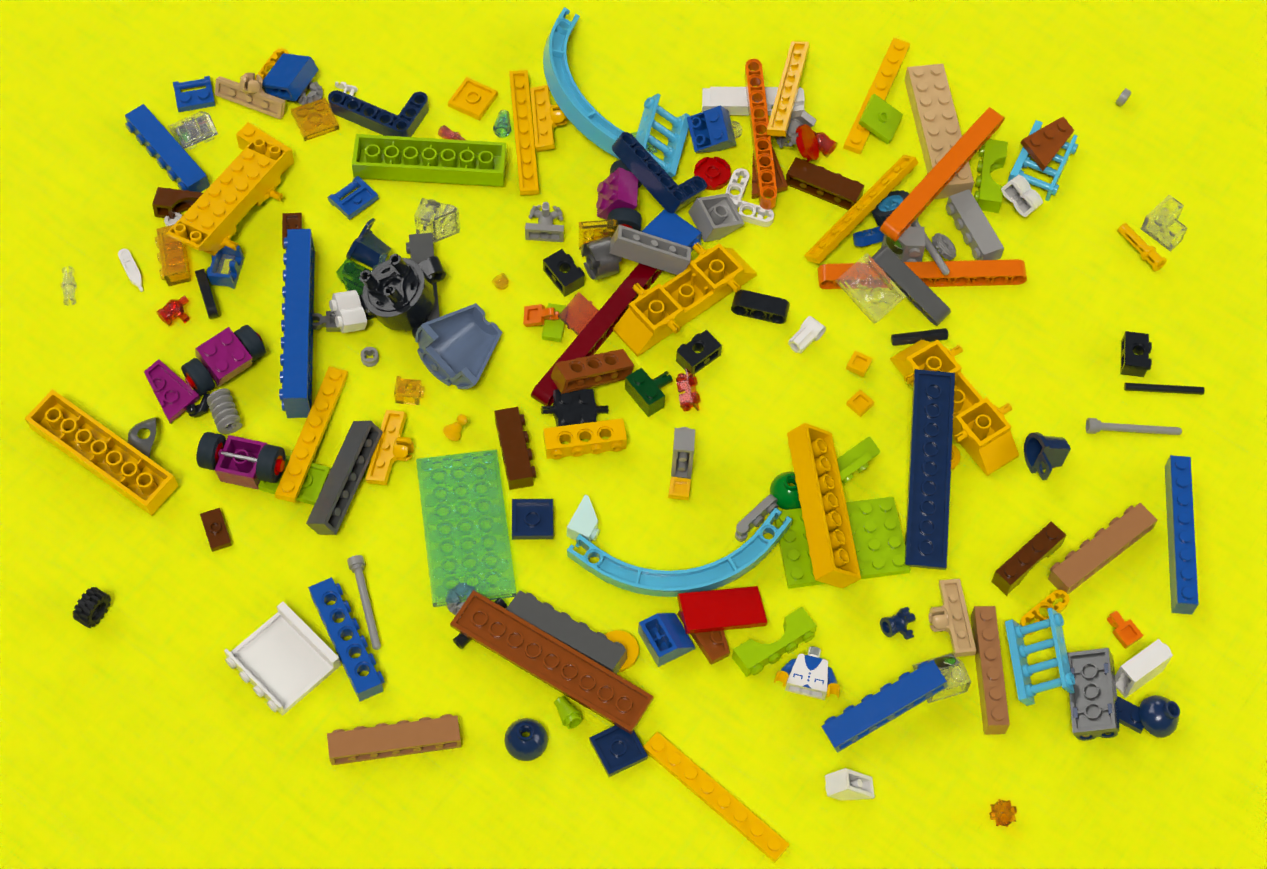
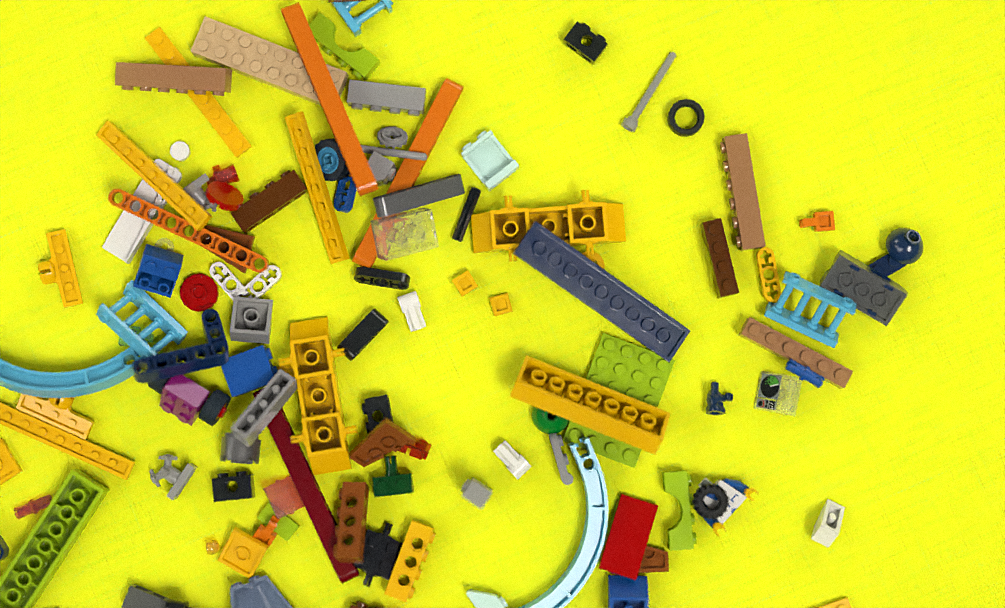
camera: 60 degrees left, 25 degrees up
(437, 219) = (118, 577): clear slope -> none
(502, 125) = (41, 454): clear light blue cone -> none
(511, 306) = (243, 553): none -> yellow tile
(595, 230) = (212, 444): clear yellow plate -> none
(665, 67) = (61, 269): none -> yellow plate
(677, 358) = (380, 441): none -> dark orange wing
(679, 488) = (498, 506): yellow plate -> none
(728, 481) = (515, 462): none -> white piece
(805, 645) = (722, 504): none -> black tyre
(813, 286) = (382, 278): none -> black beam
(820, 105) = (180, 151): none -> white tile
(857, 458) = (554, 345): lime bracket -> none
(877, 67) = (173, 77): none -> medium nougat brick
(880, 118) = (229, 109): lime plate -> none
(885, 705) = (785, 459): blue brick -> none
(953, 618) = (736, 352): tan plate -> none
(977, 679) = (804, 373): none -> blue pin
(979, 330) = (489, 160): none -> light aqua panel
(1003, 813) = (914, 418): clear orange gear -> none
(1021, 195) = (381, 36): white brick -> none
(1045, 453) = (634, 183): container -> none
(1138, 456) = (686, 103): none -> black tyre
(1142, 668) = (863, 232): white brick -> none
(1163, 388) = (628, 38): black bar -> none
(1181, 535) = (766, 120): blue brick -> none

